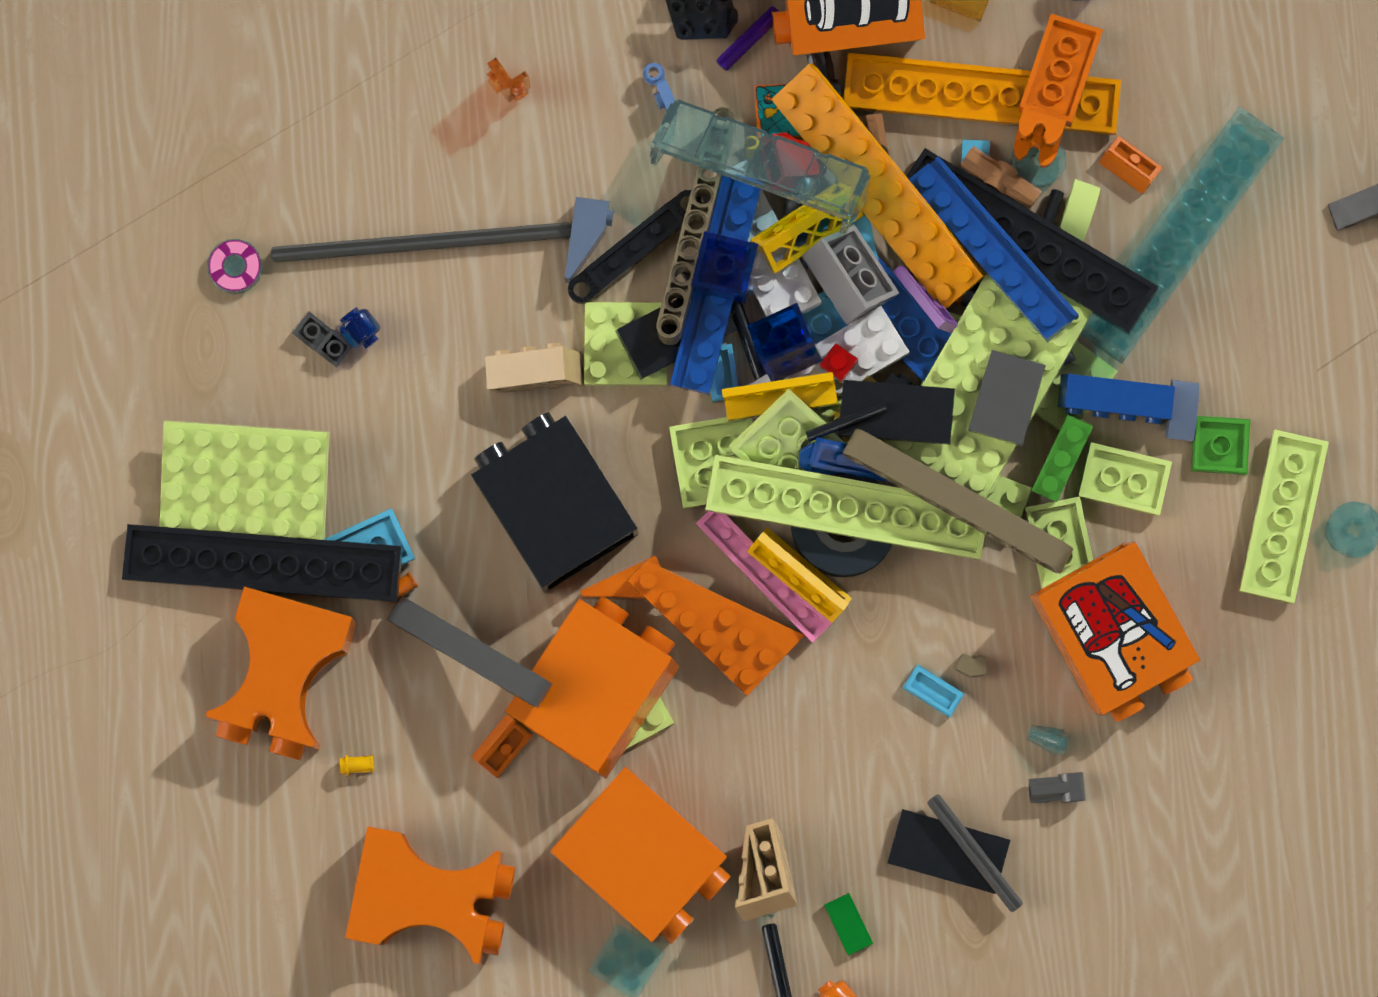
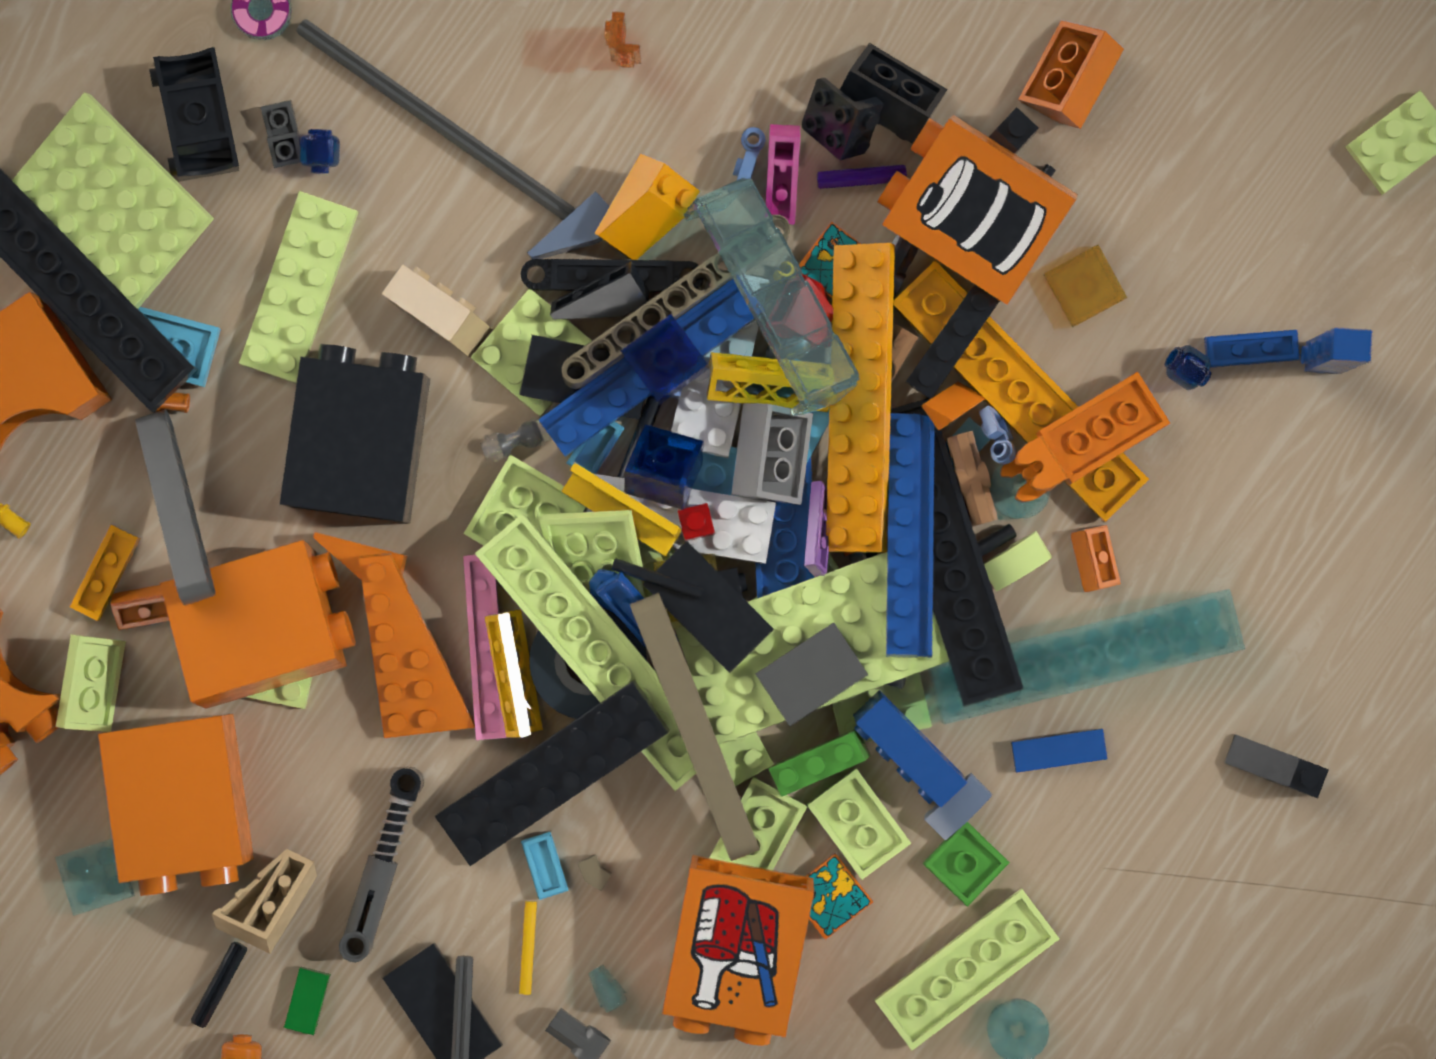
camera: 40 degrees right, 5 degrees up
(252, 374) = (195, 115): none -> black piece
(423, 435) = (298, 286): none -> yellowish green plate
(454, 744) = (105, 572): none -> light orange plate
(511, 827) = (90, 683): none -> yellowish green plate
(620, 178) = (646, 207): none -> light orange slope
(645, 261) = (607, 296): none -> black slope
(670, 402) = (529, 434): none -> clear piece
(691, 76) = (783, 170): none -> dark pink slope
(821, 787) = (380, 868): none -> piece
(885, 619) = (552, 773): none -> black plate
(907, 96) = (952, 341): none -> black plate
(943, 140) = (951, 404): none -> orange slope
(970, 757) = (528, 947): none -> yellow bar
(986, 131) = (997, 429): none -> medium blue plate
(1155, 540) = (836, 896): none -> tile
(1218, 315) = (1059, 750): none -> blue tile

